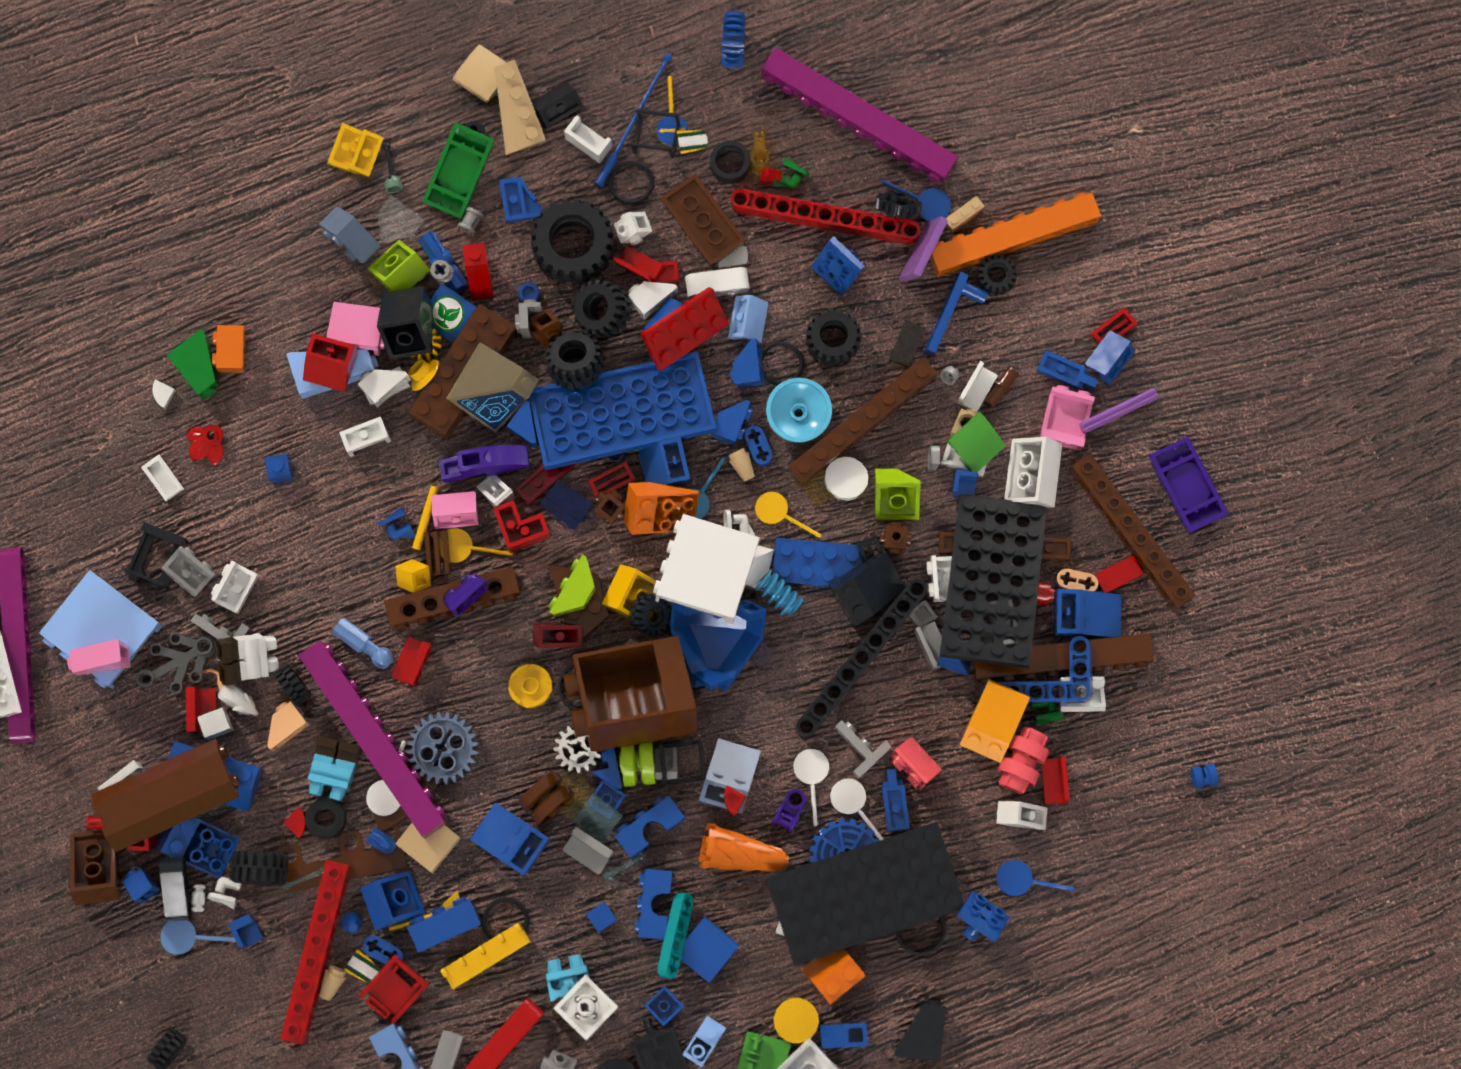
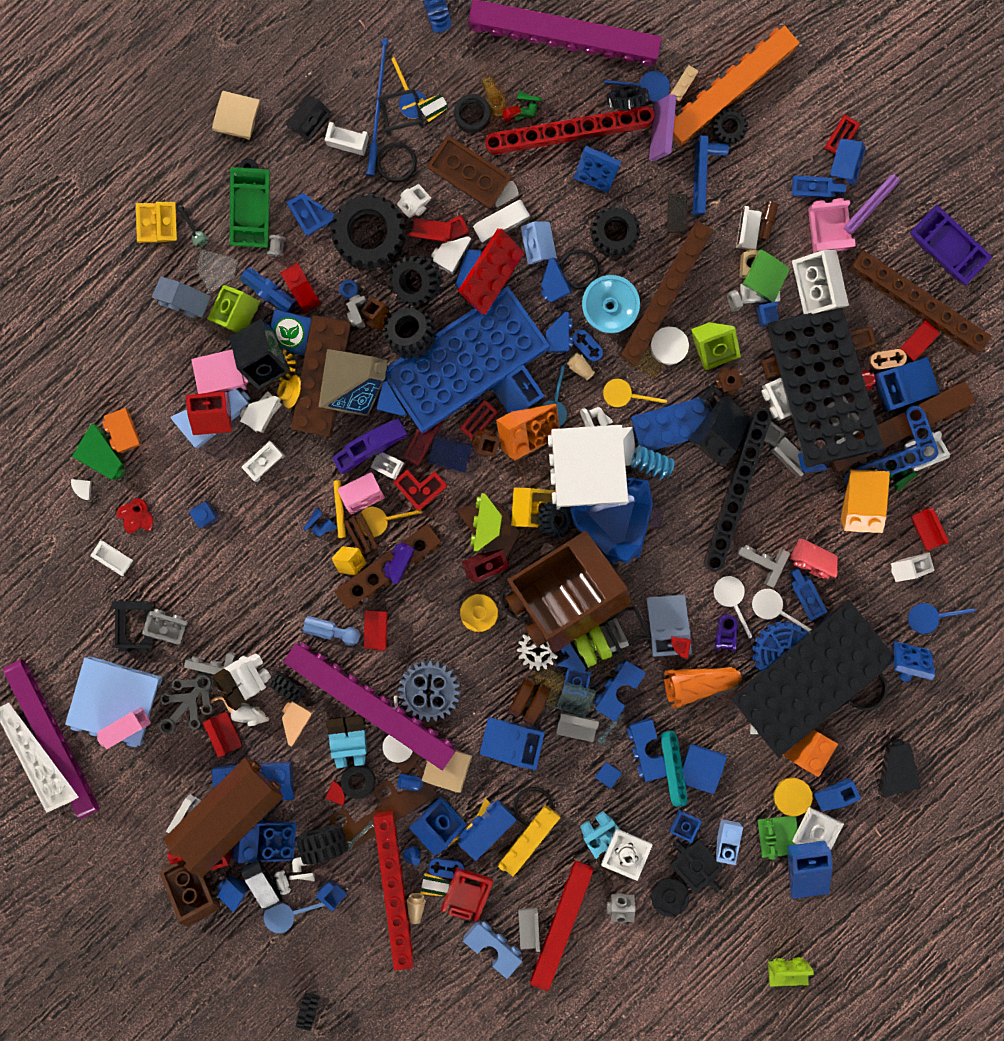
camera: 20 degrees left, 10 degrees up
(215, 723) = (238, 740): white panel -> none
(234, 587) = (207, 625): white bracket -> none
(436, 273) = (265, 301): light grey bush -> none
(517, 113) = (278, 138): tan wing -> none
(945, 375) = (720, 230): light grey hinge -> none
(1020, 768) = (900, 516): coral piece -> none

